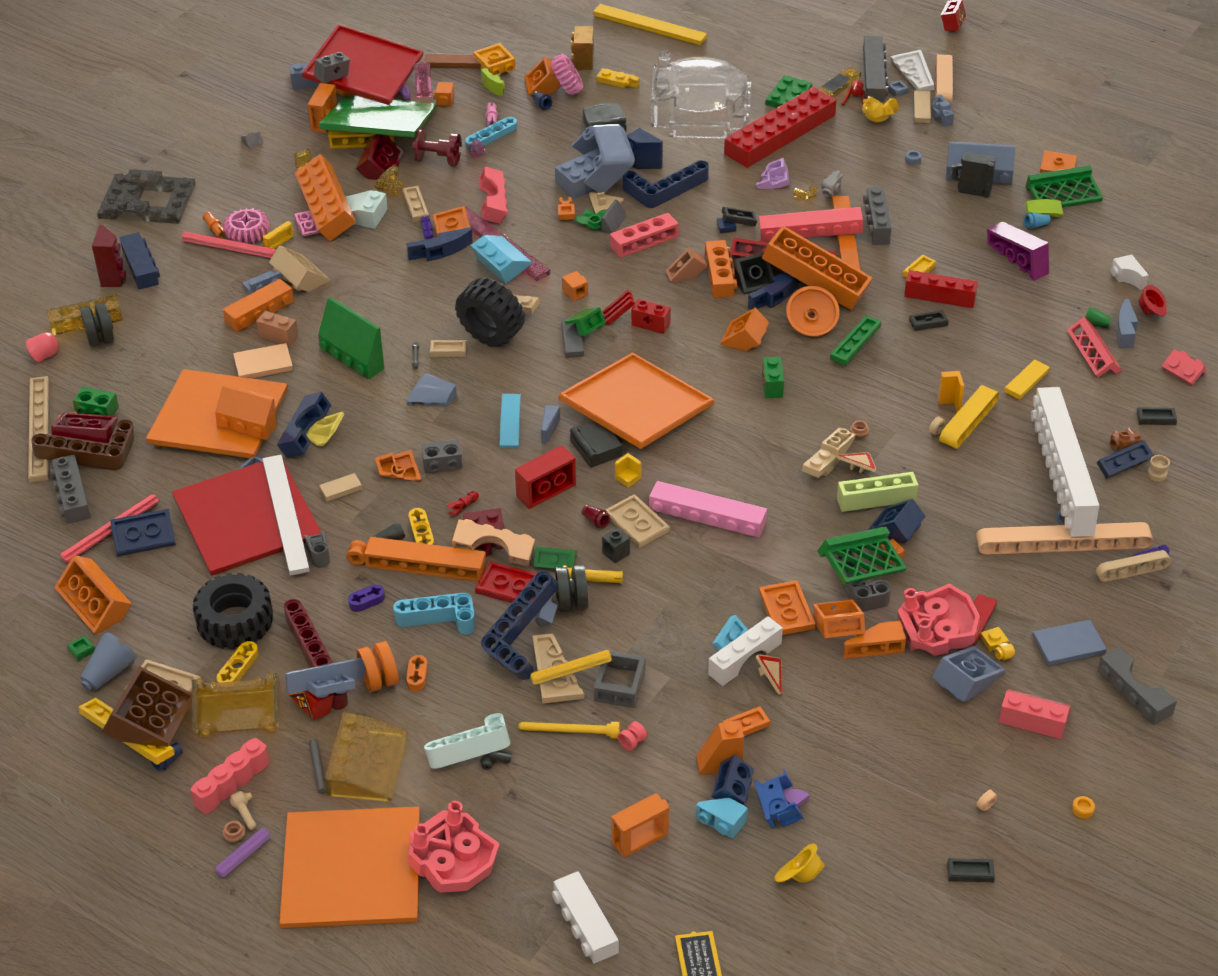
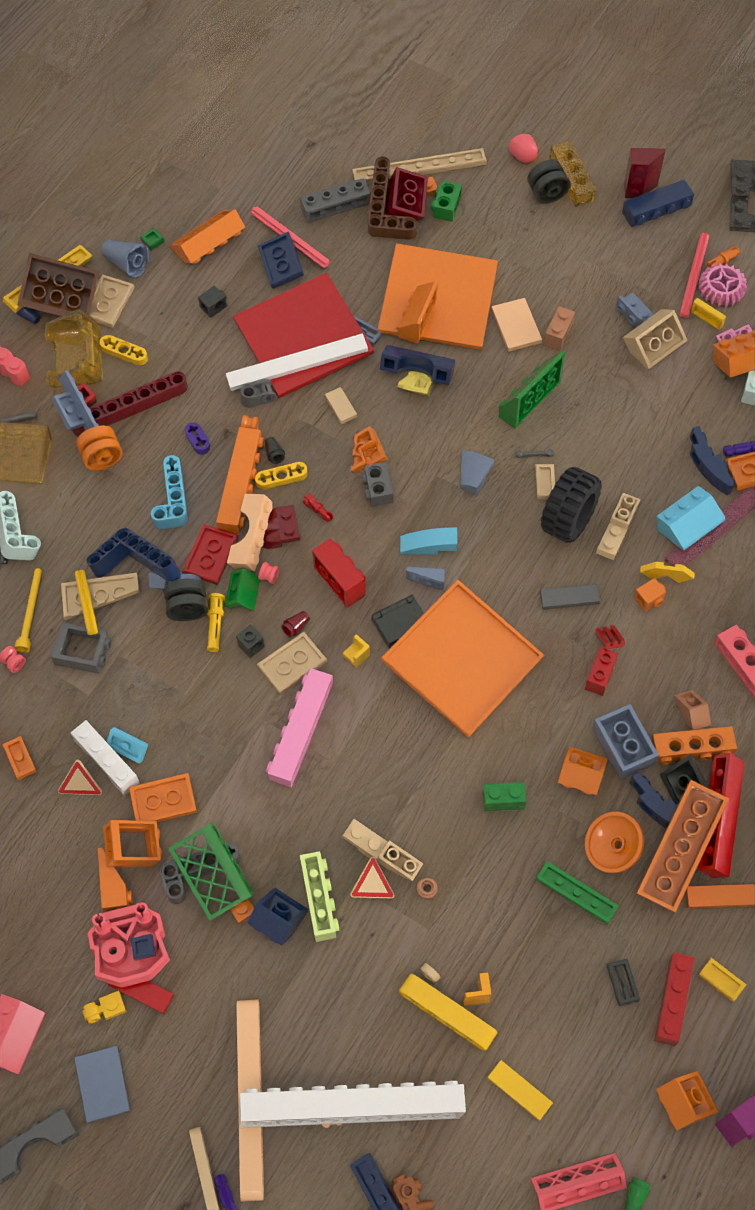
camera: 90 degrees right, 20 degrees up
(186, 586) = (212, 301): none -> pearl dark grey brick
(233, 592) = (172, 317): black tyre -> none
(250, 308) = (596, 309): orange brick -> none
(421, 673) = (104, 485): orange beam -> none
(539, 532) = (269, 572): none -> coral wheel
(554, 270) = (657, 569): none -> yellow tile
(587, 320) = (588, 606): green panel -> none
(718, 302) = (625, 741): none -> sand blue brick
(943, 600) = (143, 947): none -> dark blue tile
(967, 673) = (64, 973): sand blue slope -> none
(1021, 288) = (686, 1100): none -> orange slope

